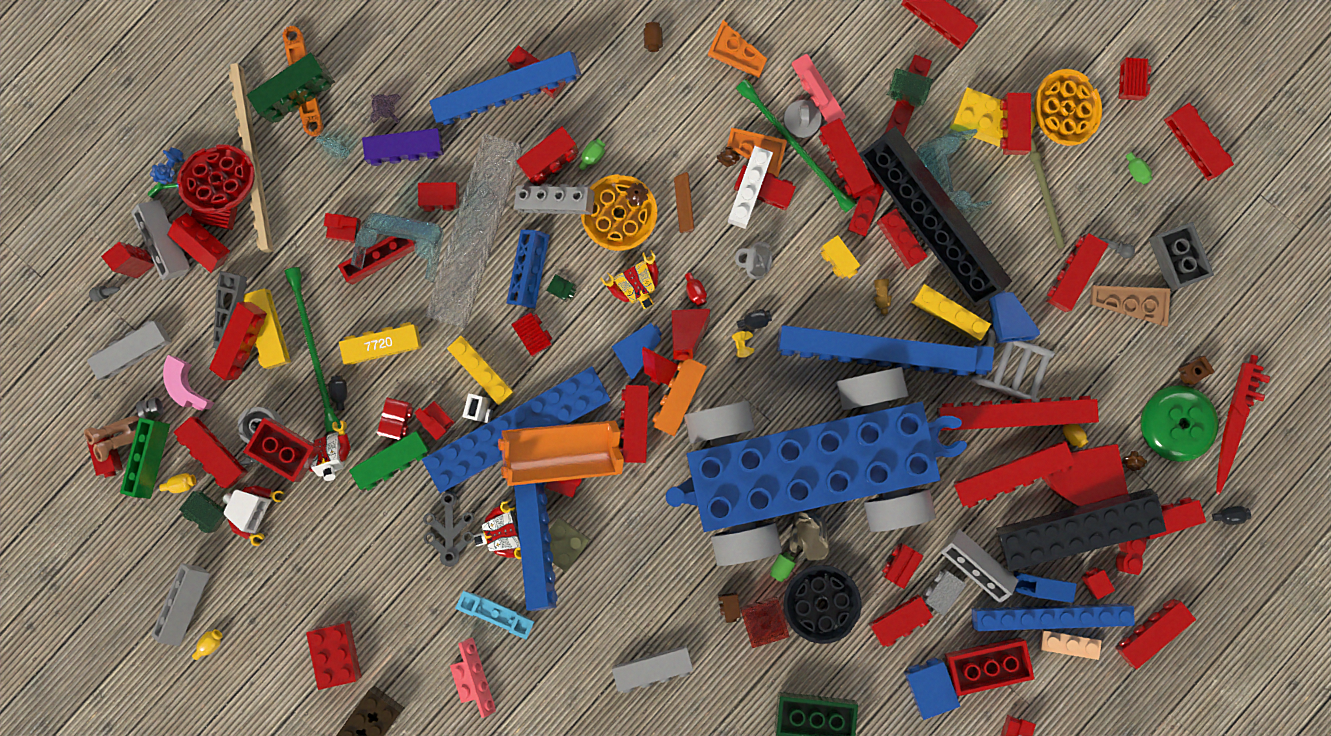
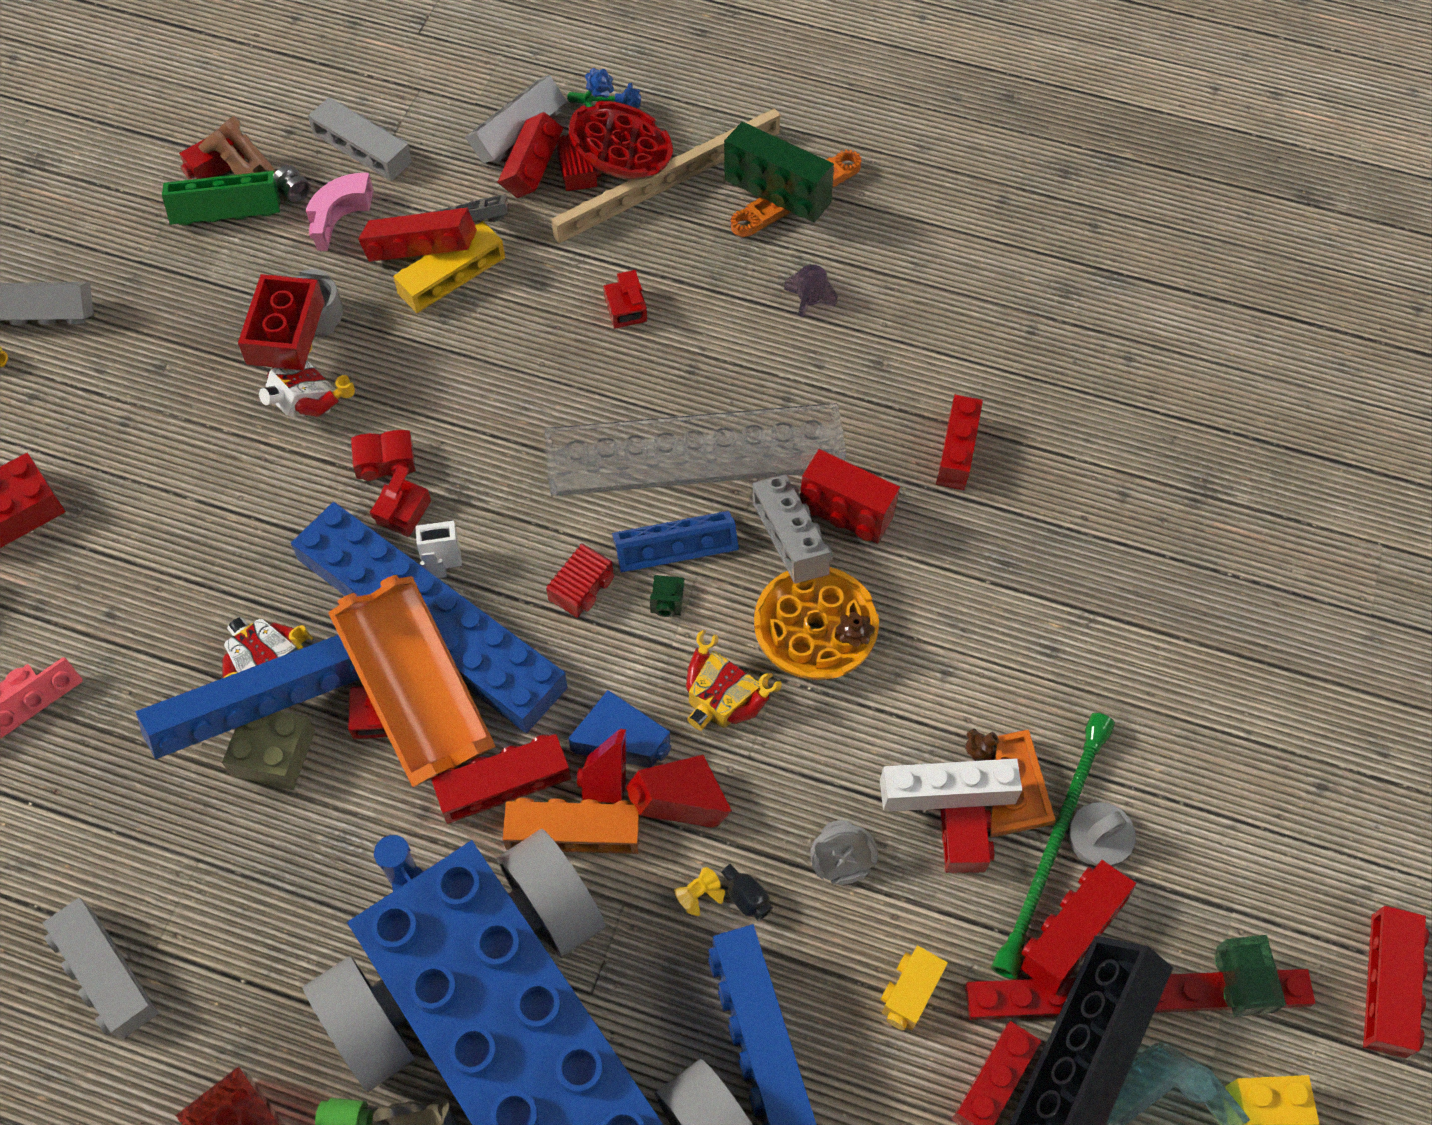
camera: 60 degrees right, 25 degrees down
(99, 293) = (423, 90): dark grey bar -> none
(128, 260) = (472, 87): red brick -> none
(179, 483) = (201, 247): yellow plant -> none
(203, 511) = (171, 285): clear green brick -> none
(210, 452) = (262, 253): red brick -> none
(246, 510) = (187, 328): white torso -> none
(294, 278) = (531, 273): green hose -> none
(334, 147) = (729, 255): clear light blue plant -> none
(338, 391) = (397, 376): black plant -> none
(377, 257) = (605, 350): red brick -> none
(380, 344) = (484, 400): yellow brick -> none
(389, 461) = (319, 470): green brick -> none
(402, 146) = (770, 327): dark purple brick -> none
(426, 234) = (647, 383): clear light blue windscreen -> none
(438, 196) = (723, 387): red brick -> none
(448, 531) = (239, 585): dark grey plant -> none
(481, 370) = (497, 535): yellow brick -> none
(495, 613) = (129, 693): medium azure slope -> none
(506, 88) = (917, 407): blue brick -> none
(592, 153) = (884, 558): bright green plant -> none
(653, 36) = (1097, 569): reddish brown brick -> none
(684, 203) = (878, 714): dark orange slope -> none
(695, 290) = (751, 783): red plant -> none
(729, 607) = (244, 1050): reddish brown brick -> none
(735, 51) = (1145, 693): orange wing -> none
(817, 89) = (1161, 837): coral bracket -> none
(882, 299) = (879, 1095): pearl gold piece -> none

